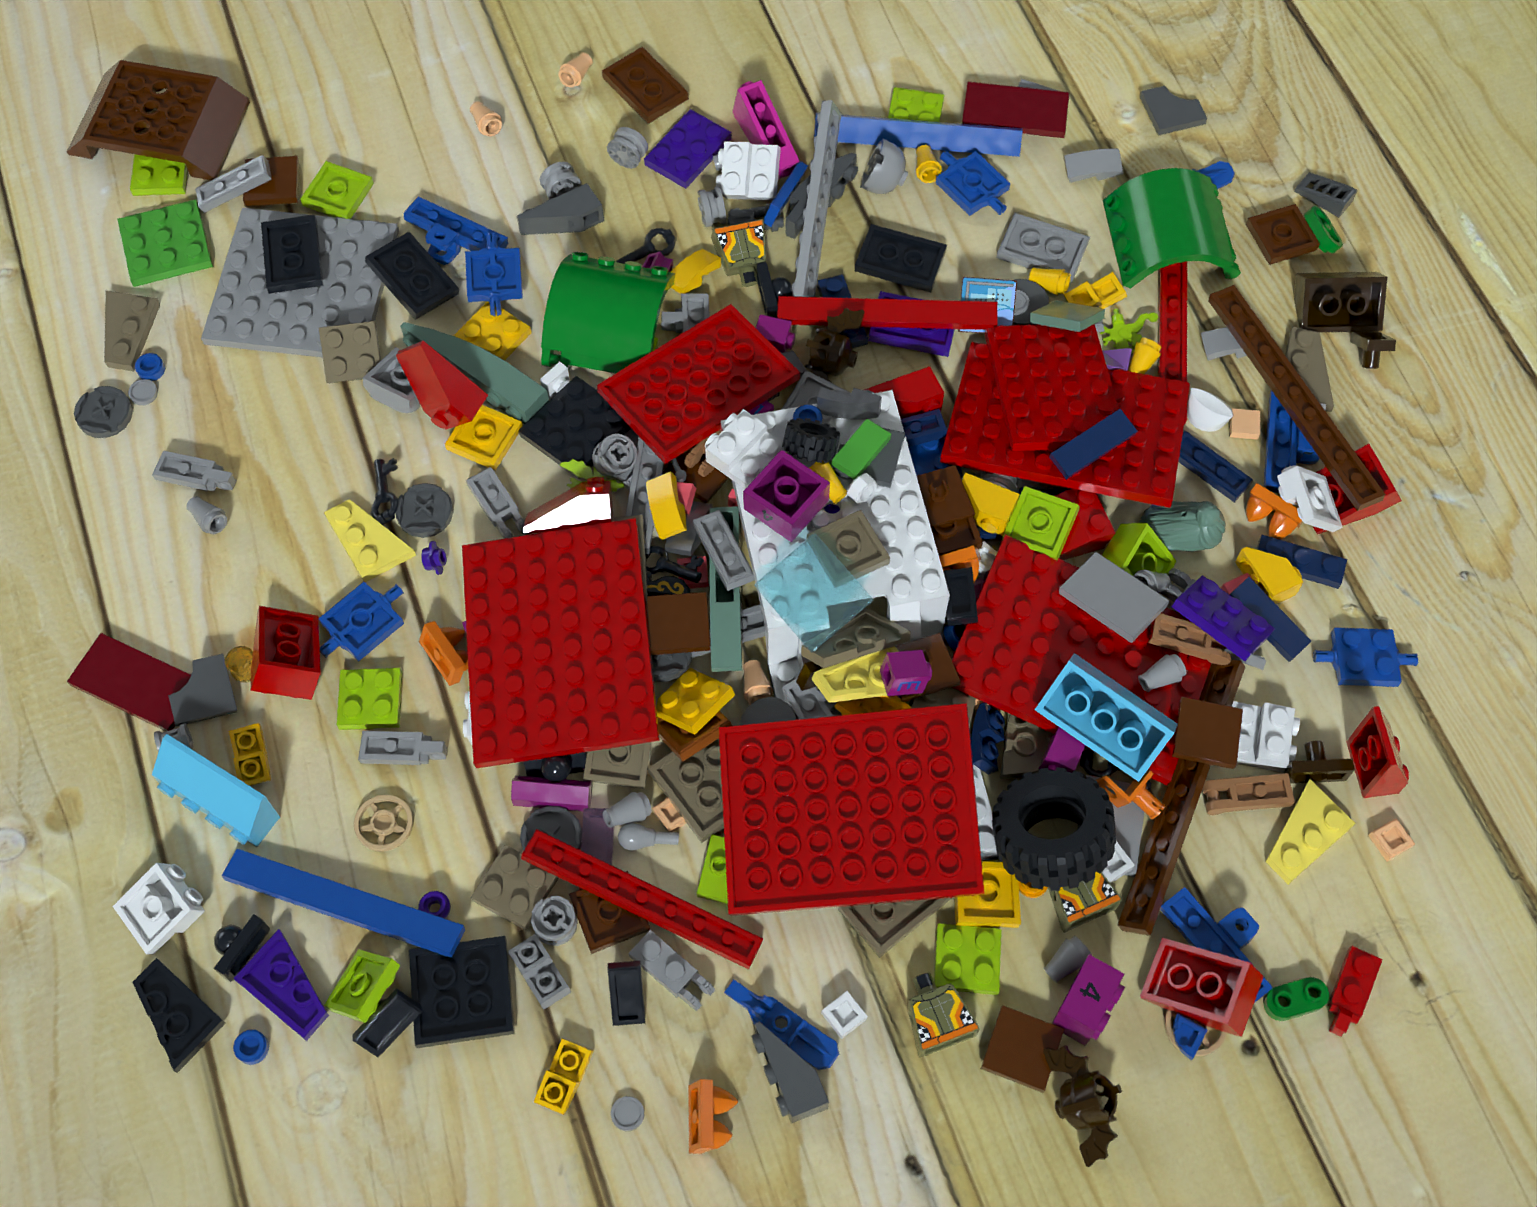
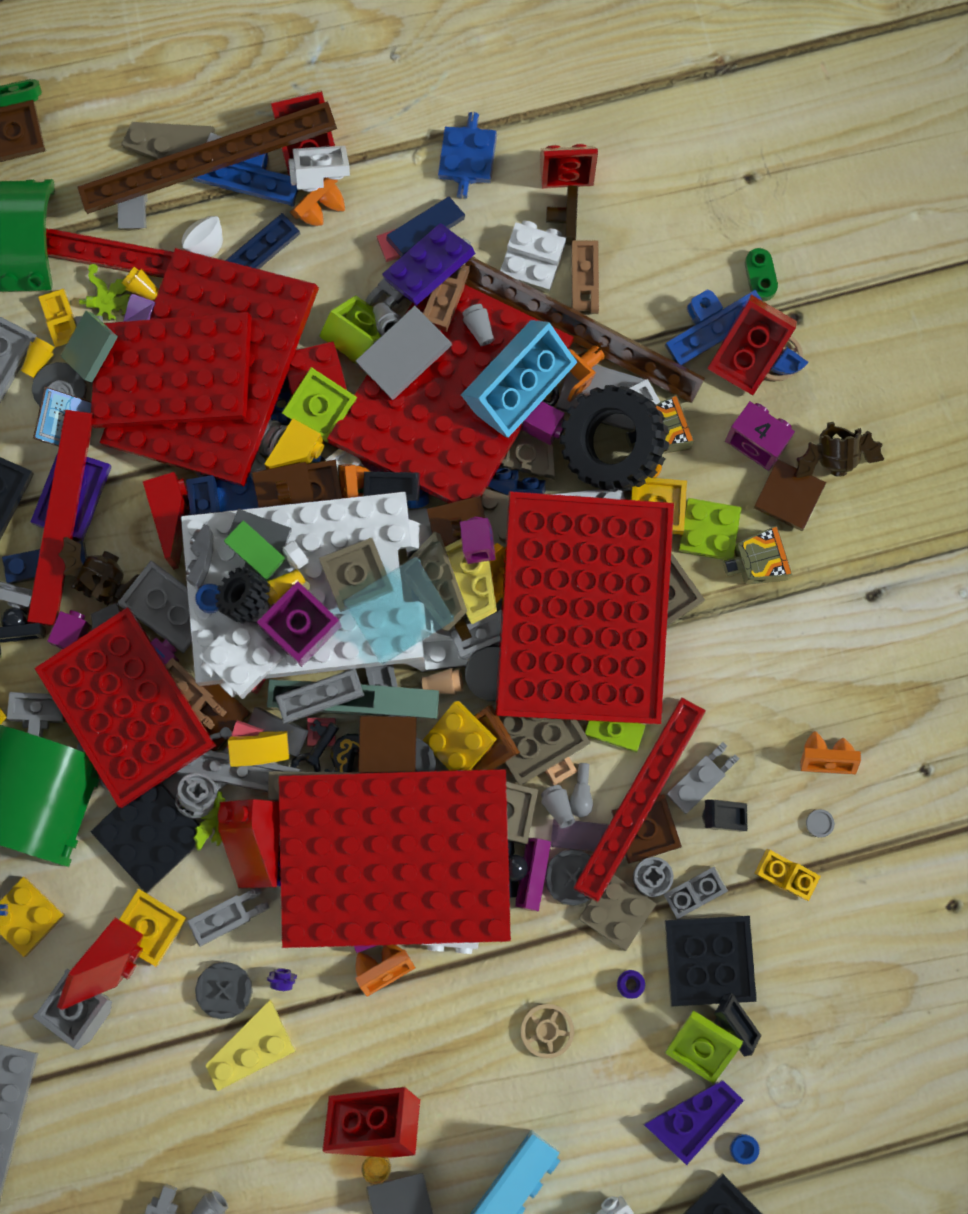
camera: 85 degrees left, 15 degrees up
(238, 945) = (653, 1166): black tile -> none
(250, 754) = (470, 1158): yellow slope -> none
(344, 903) = (623, 1067): blue tile -> none
(349, 351) = (33, 1063): dark tan plate -> none
(361, 621) = (341, 1052): blue plate -> none
(369, 698) = (421, 1044): lime plate -> none
(382, 494) = (204, 1031): black piece -> none
(399, 748) = (477, 1016): light grey hinge -> none
(501, 381) = (73, 927): sand green slope -> none
(555, 379) = (94, 851): white plate -> none
(795, 1079) = (807, 680): dark grey slope -> none
(798, 1035) = (765, 677): blue piece -> none
(844, 1014) = (752, 635): white plate -> none
(1067, 959) = (718, 448): light grey cone -> none
(1093, 444) = (253, 342): dark blue tile -> none
(1186, 525) = (329, 270): sand green hair -> none
(1207, 733) = (537, 296): reddish brown tile -> none
(1245, 424) = (221, 206): light nougat tile -> none
(1271, 573) = (382, 216): yellow slope -> none
(1308, 833) = (623, 235): light yellow wing -> none
(1312, 564) = (368, 189): dark blue plate -> none
(1340, 301) = (99, 95): dark brown slope -> none
(1352, 989) = (756, 229): red hinge -> none
(1372, 345) = (155, 76): dark brown tile -> none
(1391, 839) = (633, 171): light nougat tile -> none

